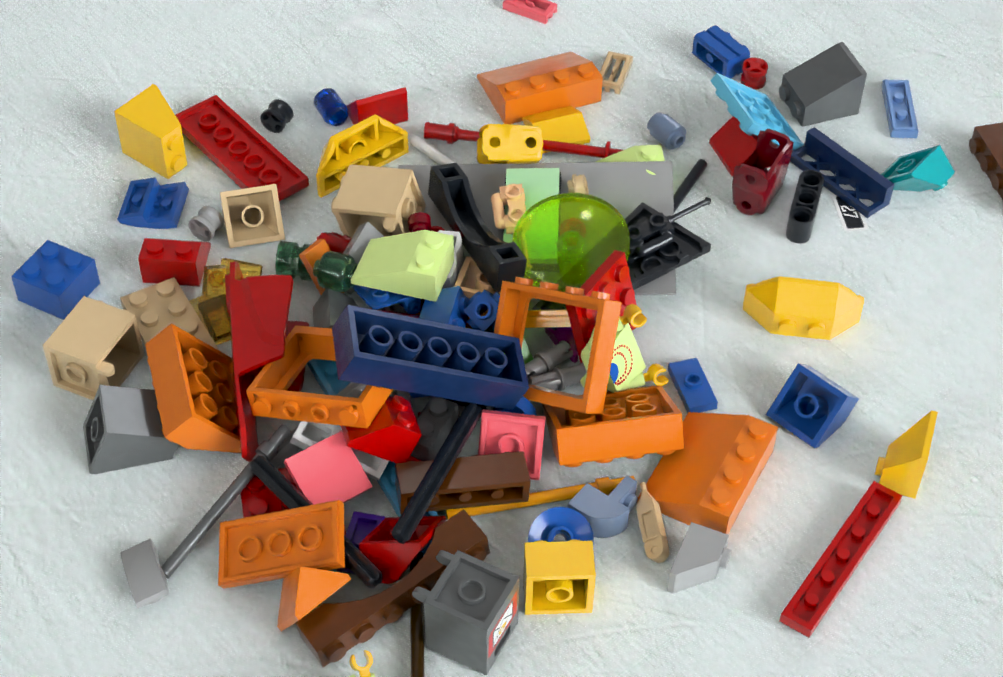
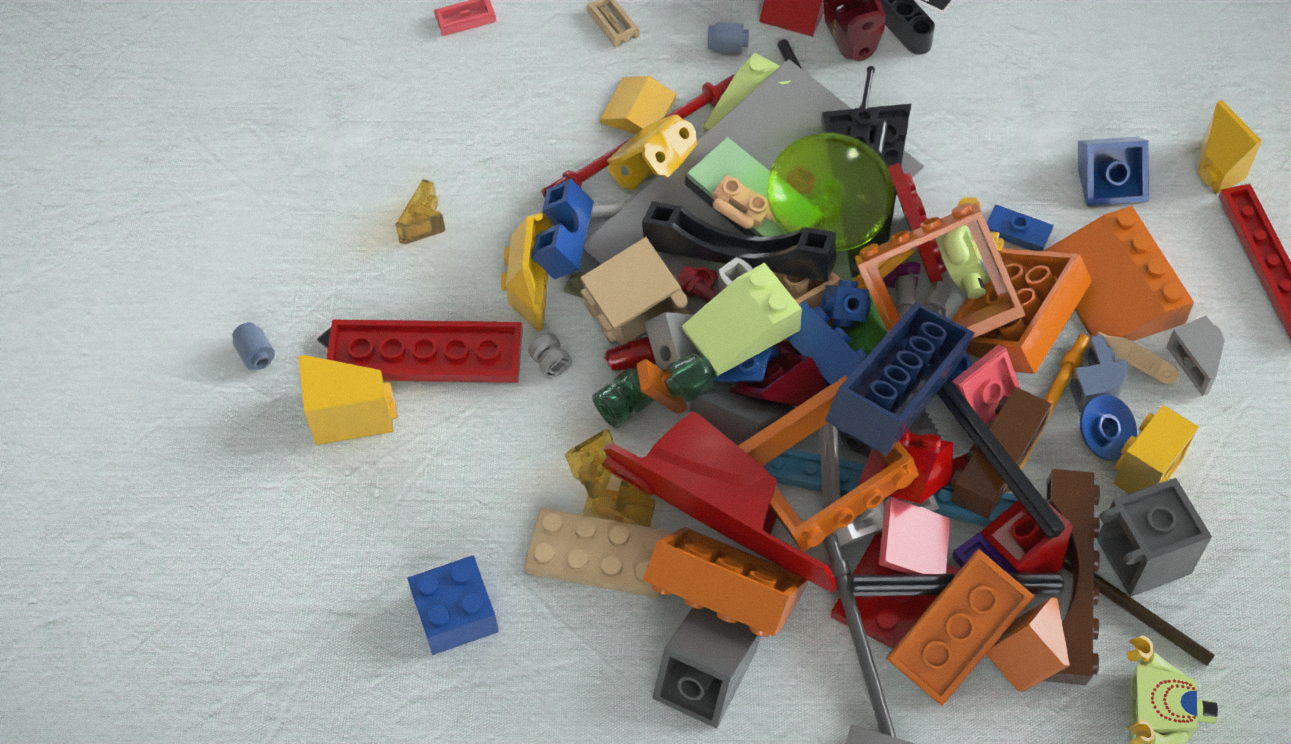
camera: 45 degrees left, 10 degrees up
(93, 348) = (592, 627): tan container -> none
(152, 204) = (421, 464): blue slope -> none
(161, 74) = (253, 346): none -> sand blue brick
(173, 258) = (517, 491): red slope -> none
(206, 223) = (498, 438): light grey wheel -> none
(252, 215) = (524, 396): tan slope -> none
(276, 116) = (411, 292): black wheel -> none
(297, 207) = (550, 356): none -> light grey wheel
(331, 107) = (443, 244): clear blue brick -> none
(343, 79) = (420, 215): none -> clear yellow slope
(388, 105) = (482, 211): red slope -> none
(415, 139) = (562, 246): none -> blue arch
(542, 86) = (576, 78): orange slope -> none
(578, 184) = (755, 140): tan plate -> none
(802, 307) = (1011, 104): yellow wedge -> none

